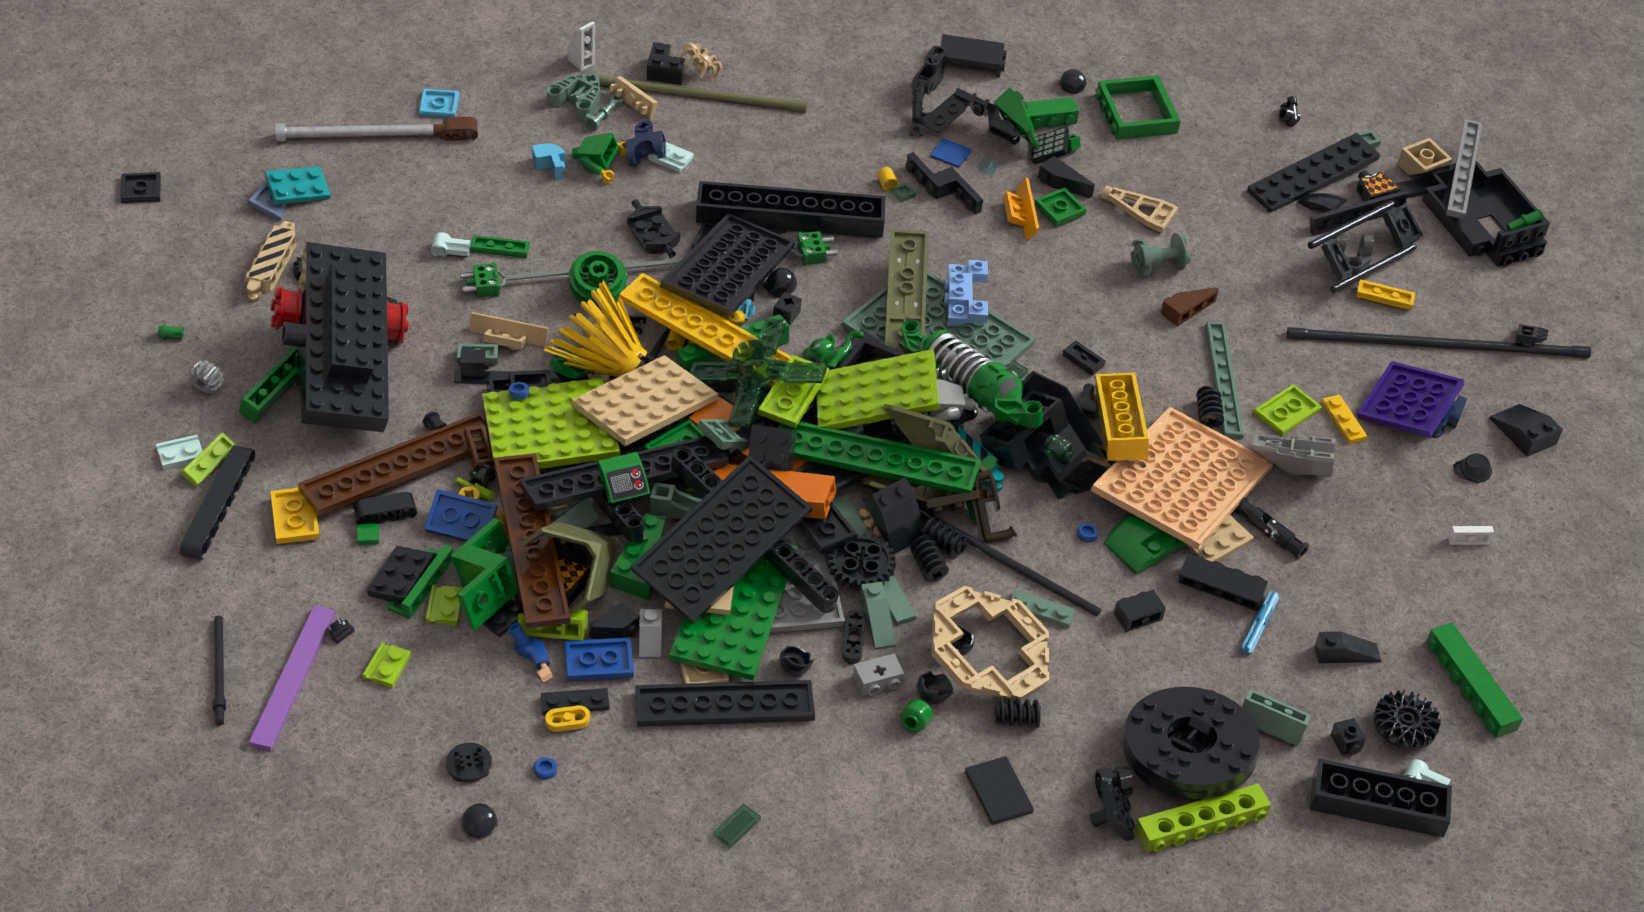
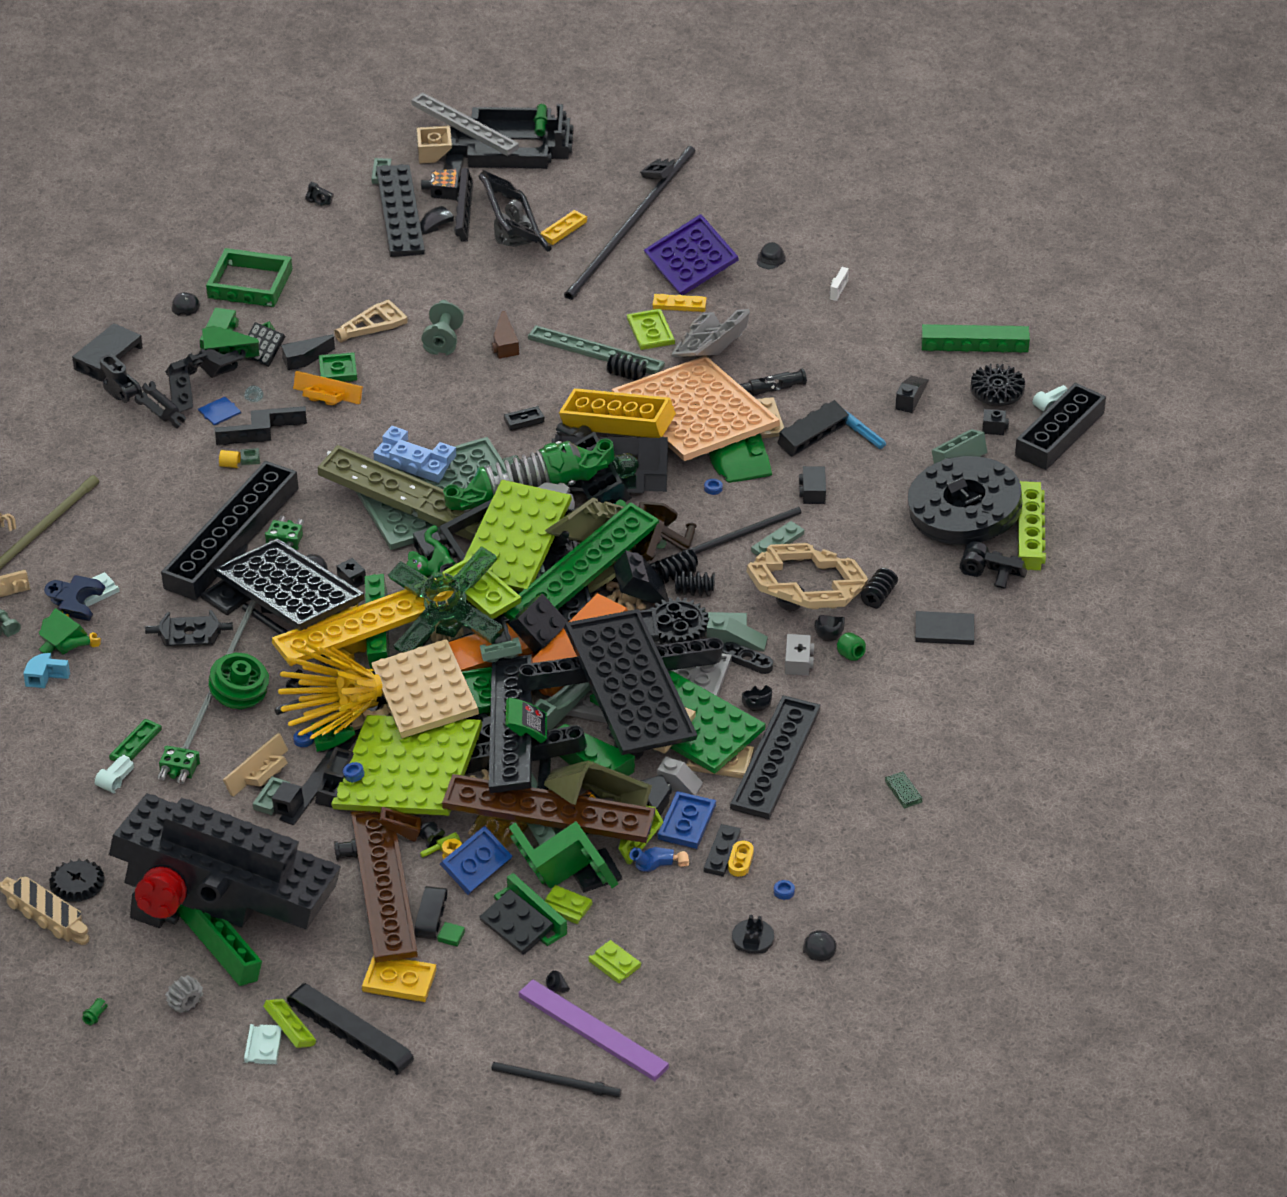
camera: 60 degrees left, 5 degrees down
(1528, 428) = (749, 211): black slope -> none

